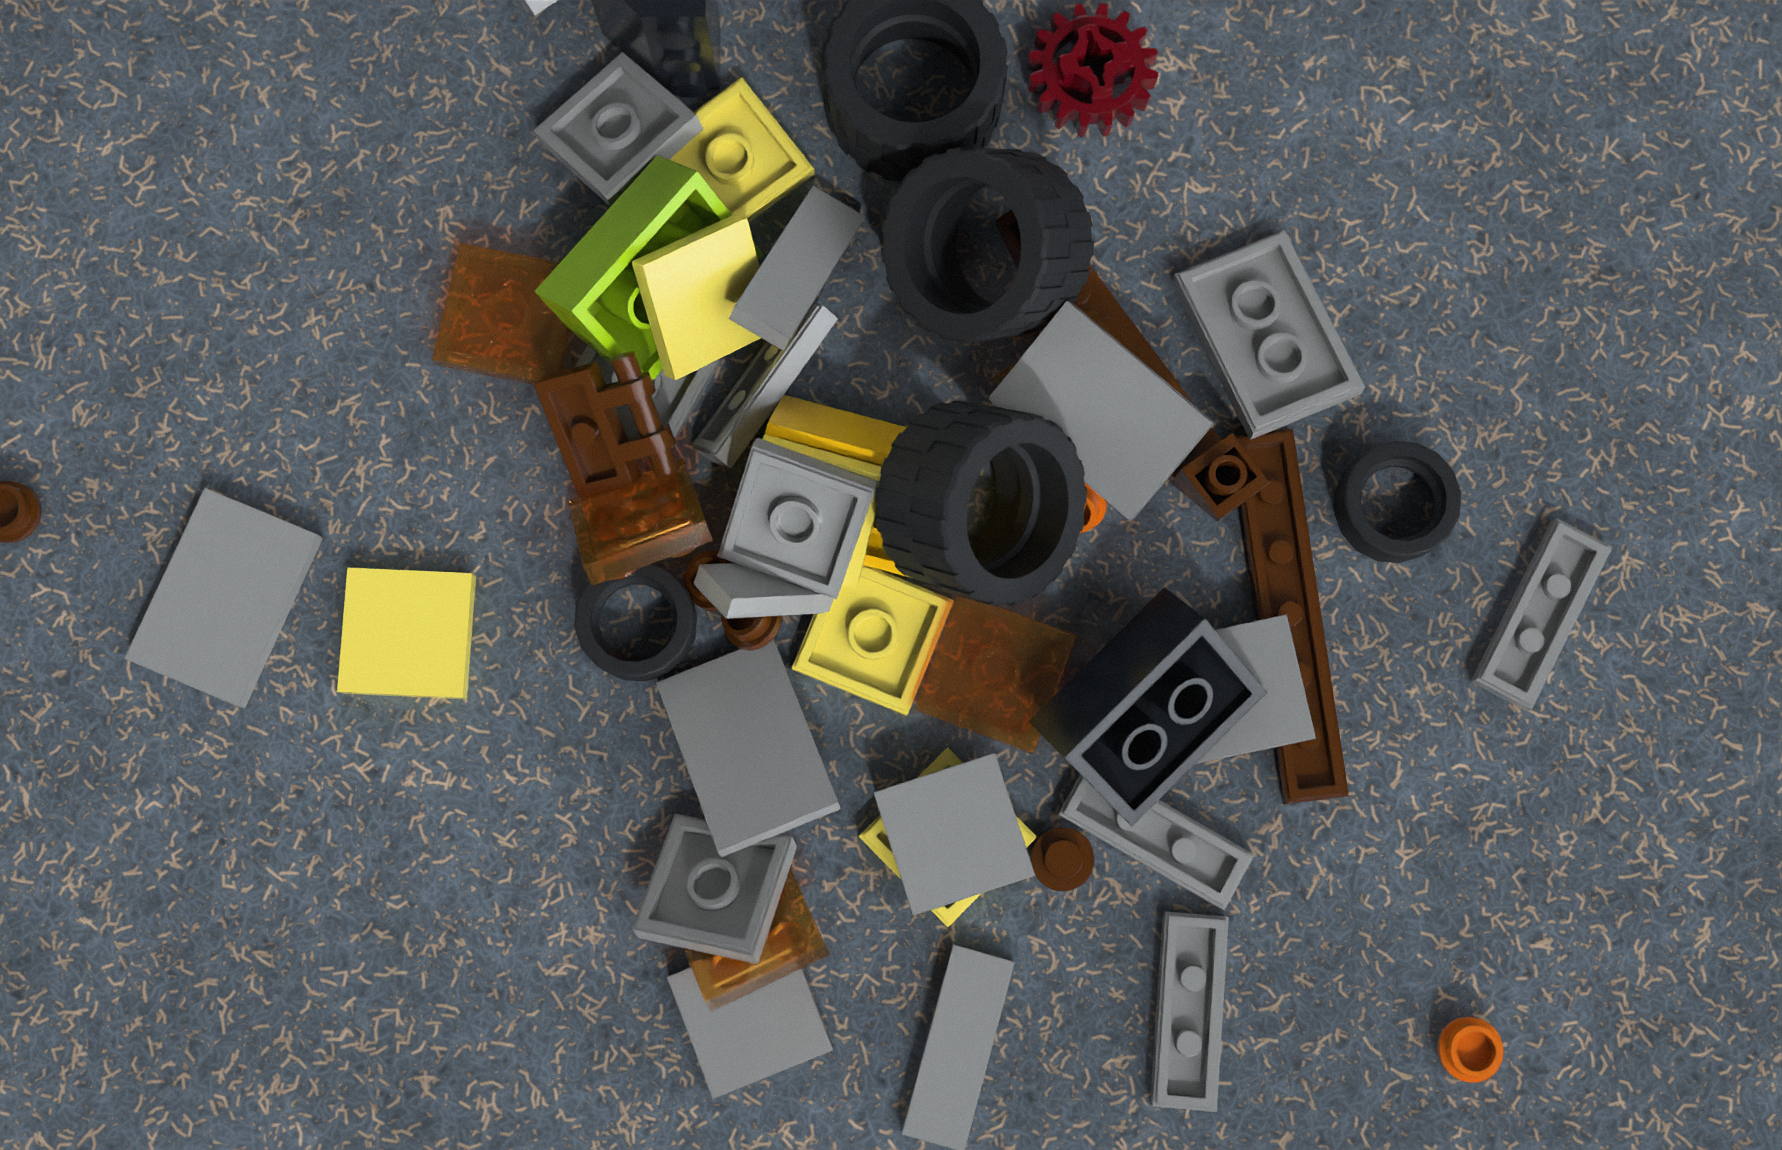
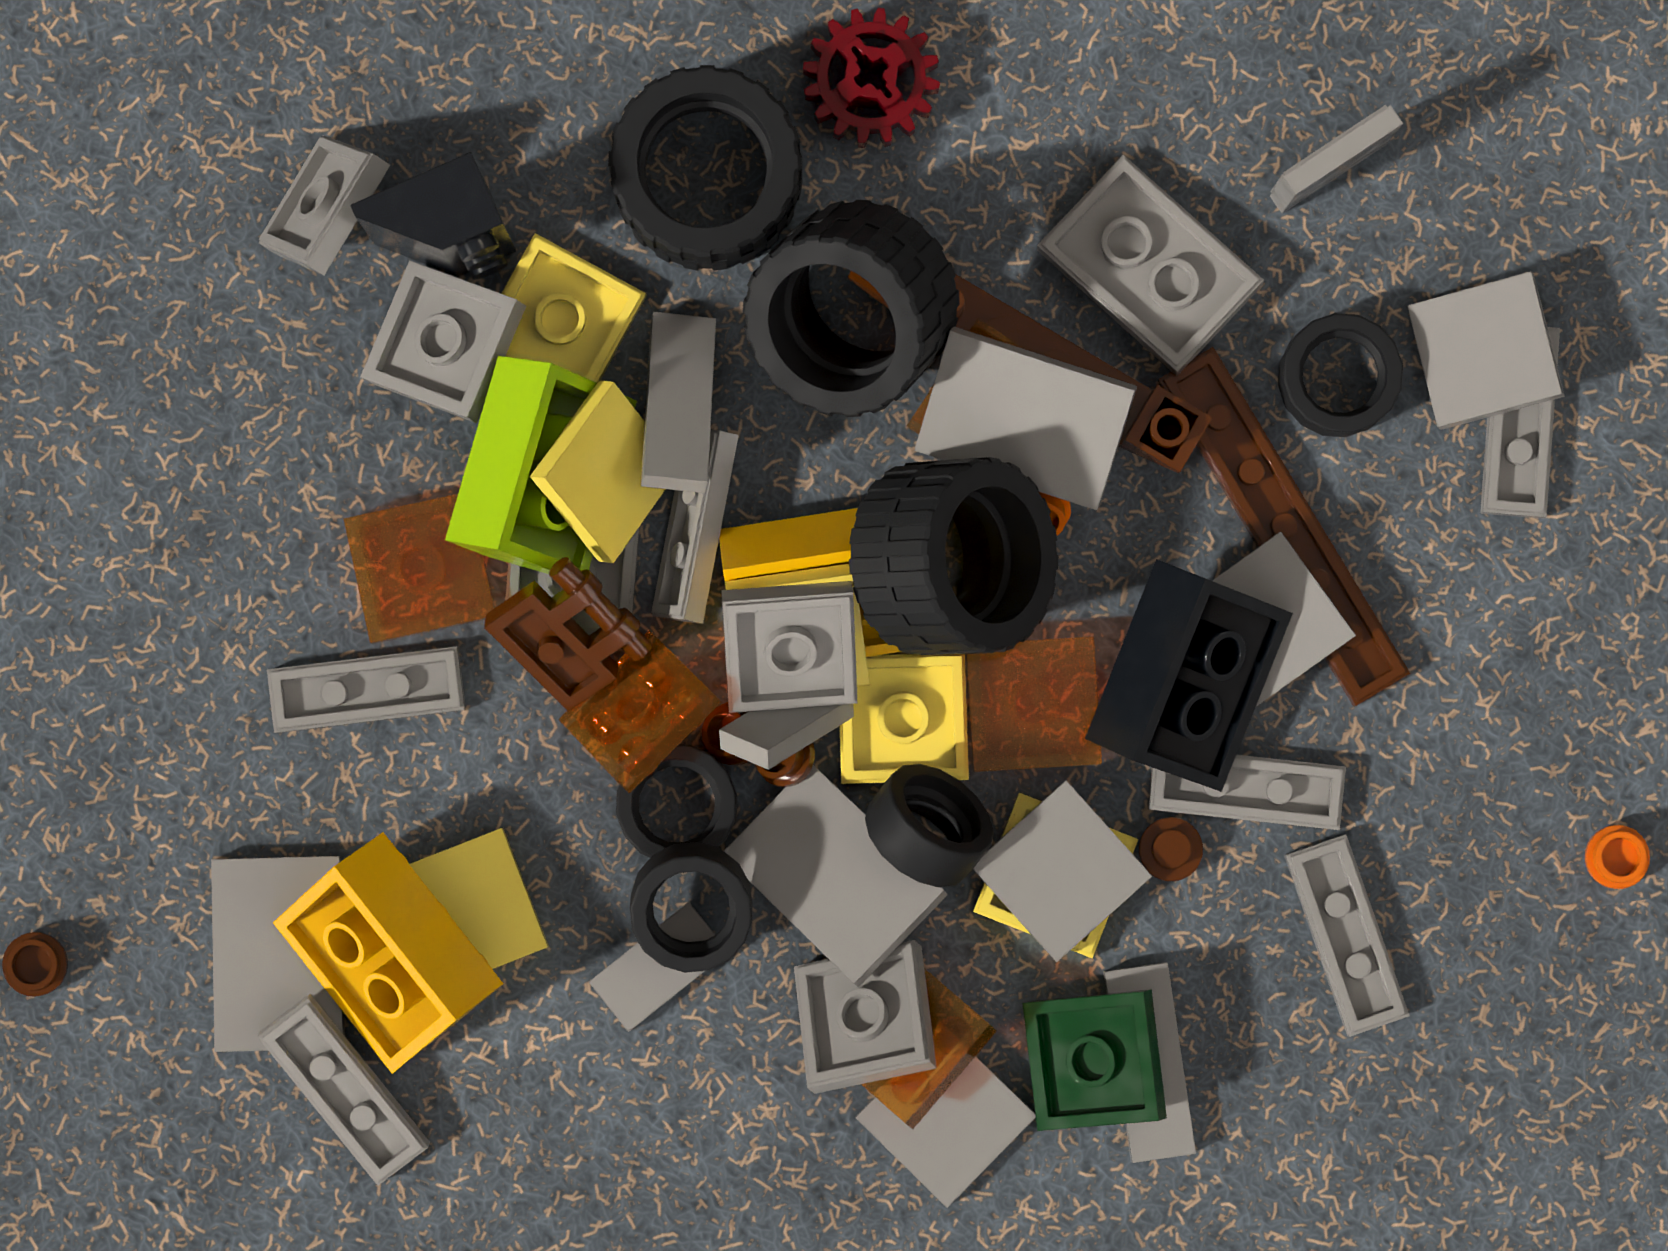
camera: 25 degrees left, 5 degrees up
(220, 743) = (343, 1089): none -> light grey tile
(314, 634) = (387, 952): none -> yellow slope
(412, 402) = (366, 689): none -> light grey tile
(554, 759) = (638, 984): none -> light grey tile
(571, 752) = (699, 954): none -> black tyre
(831, 755) = (910, 844): none -> black tyre
(908, 1023) = (1094, 1060): none -> dark green plate
(1477, 305) = (1335, 158): none -> light grey tile
(1539, 537) = (1485, 350): none -> light grey tile

